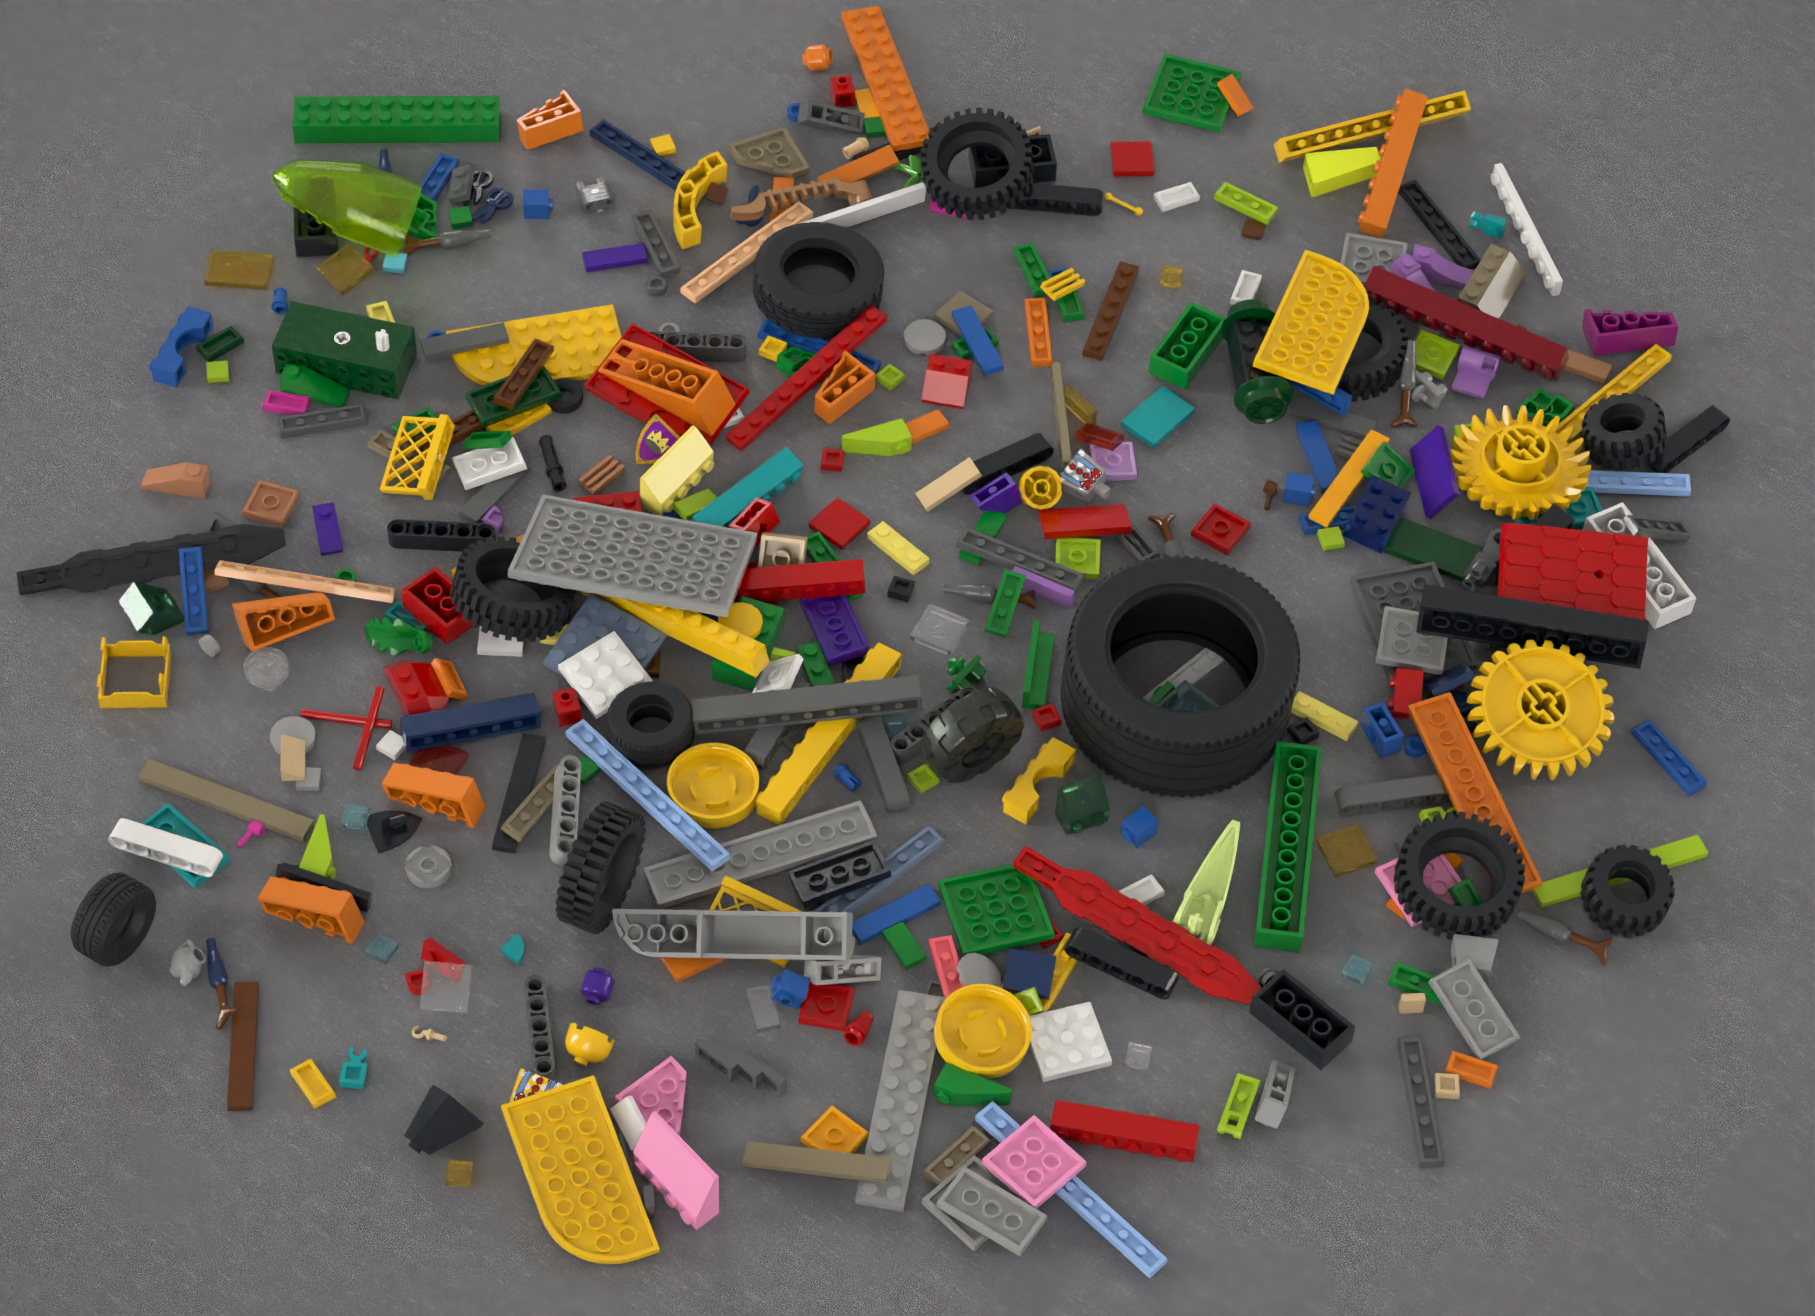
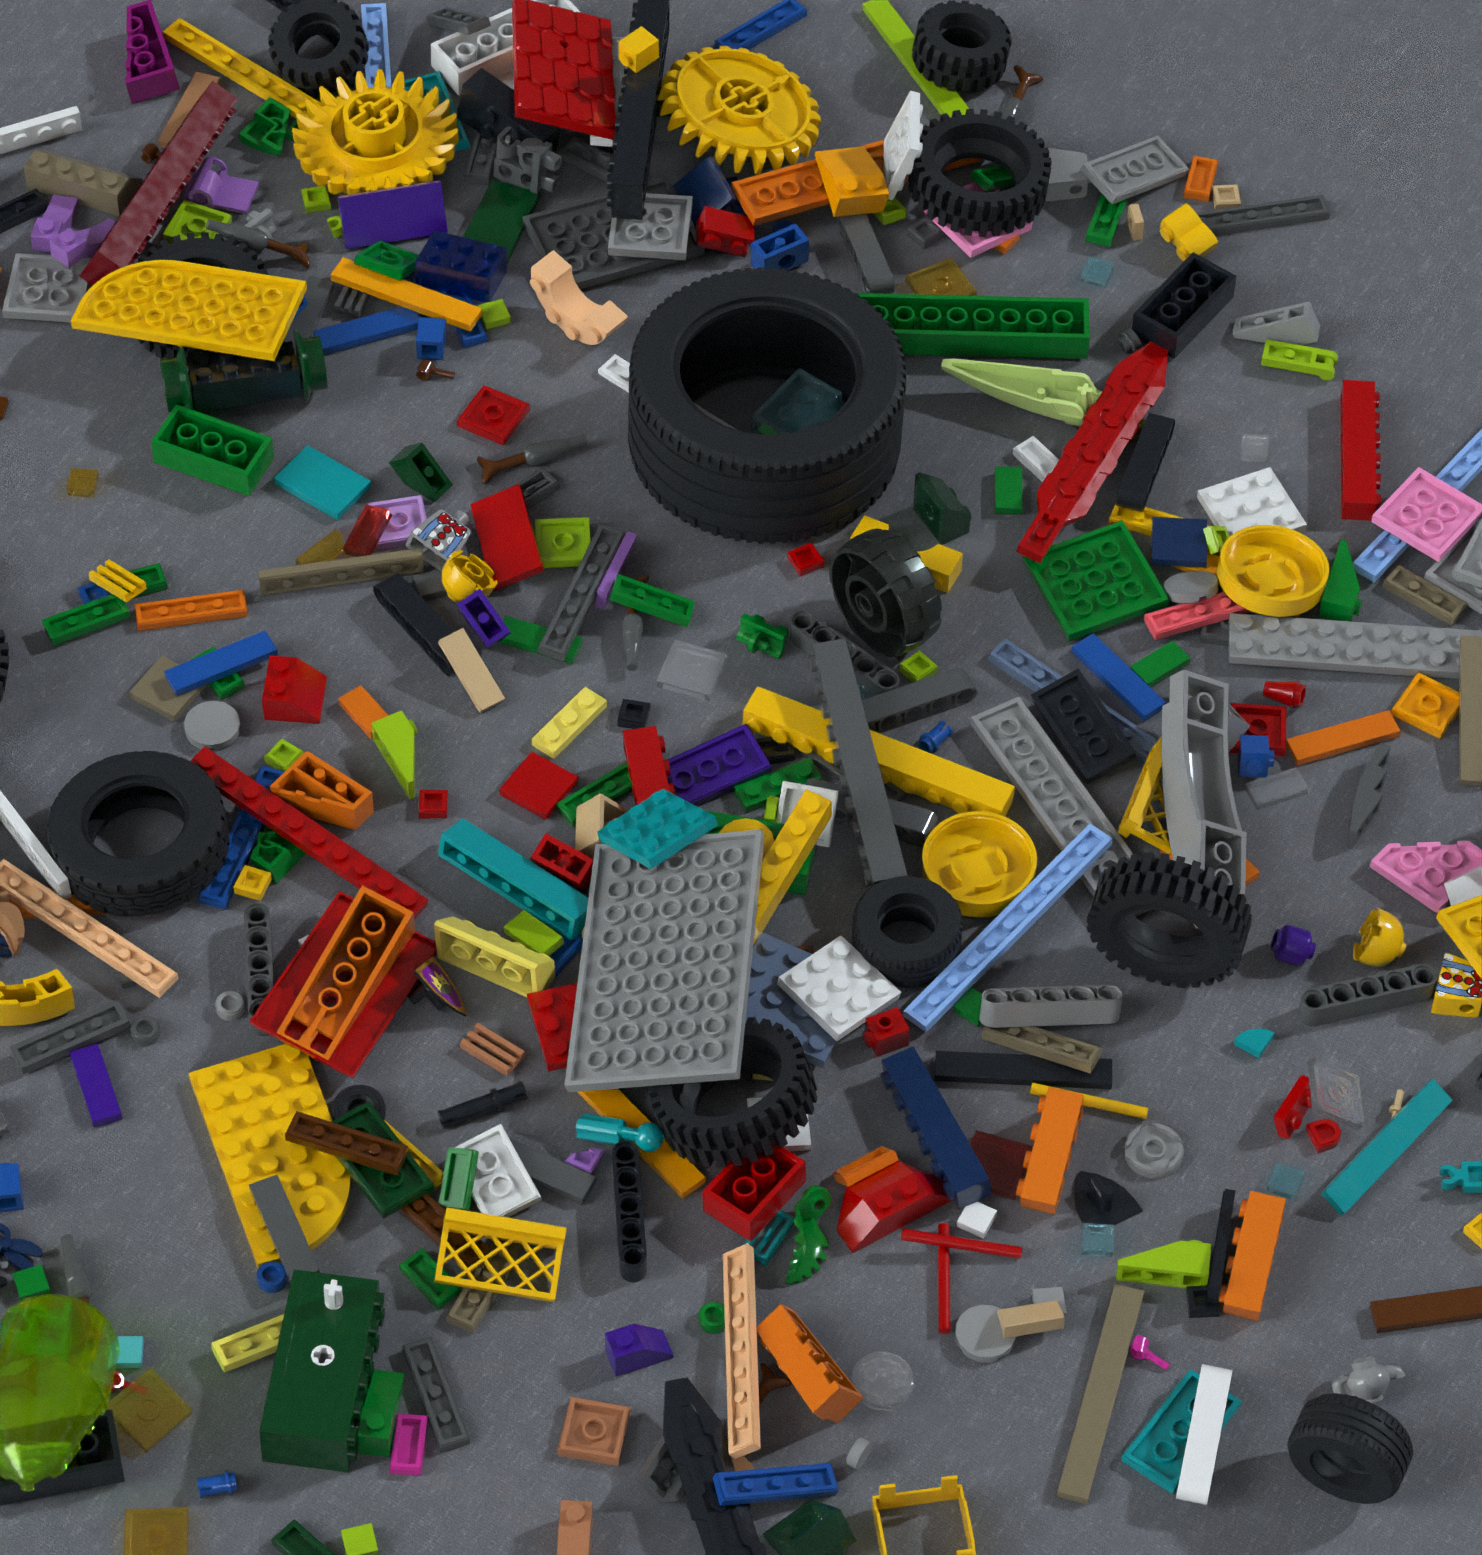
camera: 95 degrees left, 0 degrees up
(218, 980) = (1380, 1345): piece -> none
(395, 1019) = (1386, 1147): none -> teal tile
(482, 831) = (1099, 1103): none -> yellow bar
(512, 525) = (613, 1130): none -> teal piece
(754, 560) = (657, 828): none -> teal plate
(808, 1065) = (1342, 737): none -> orange tile
(1037, 668) = (737, 571): green fence -> none
(1107, 865) = (1008, 490): none -> green tile
(1110, 311) = (147, 539): reddish brown plate -> none
(1139, 827) = (953, 459): blue brick -> none
(1158, 473) = (420, 471): none -> dark green slope
(1246, 287) = (98, 409): white tile -> none
(1328, 580) = (569, 306): none -> light nougat brick
(1390, 1037) = (1187, 233): none -> yellow brick
(1453, 778) = (852, 181): none -> light orange slope
(1486, 805) = (902, 144): none -> white plate
(1569, 607) = (638, 49): none -> yellow brick

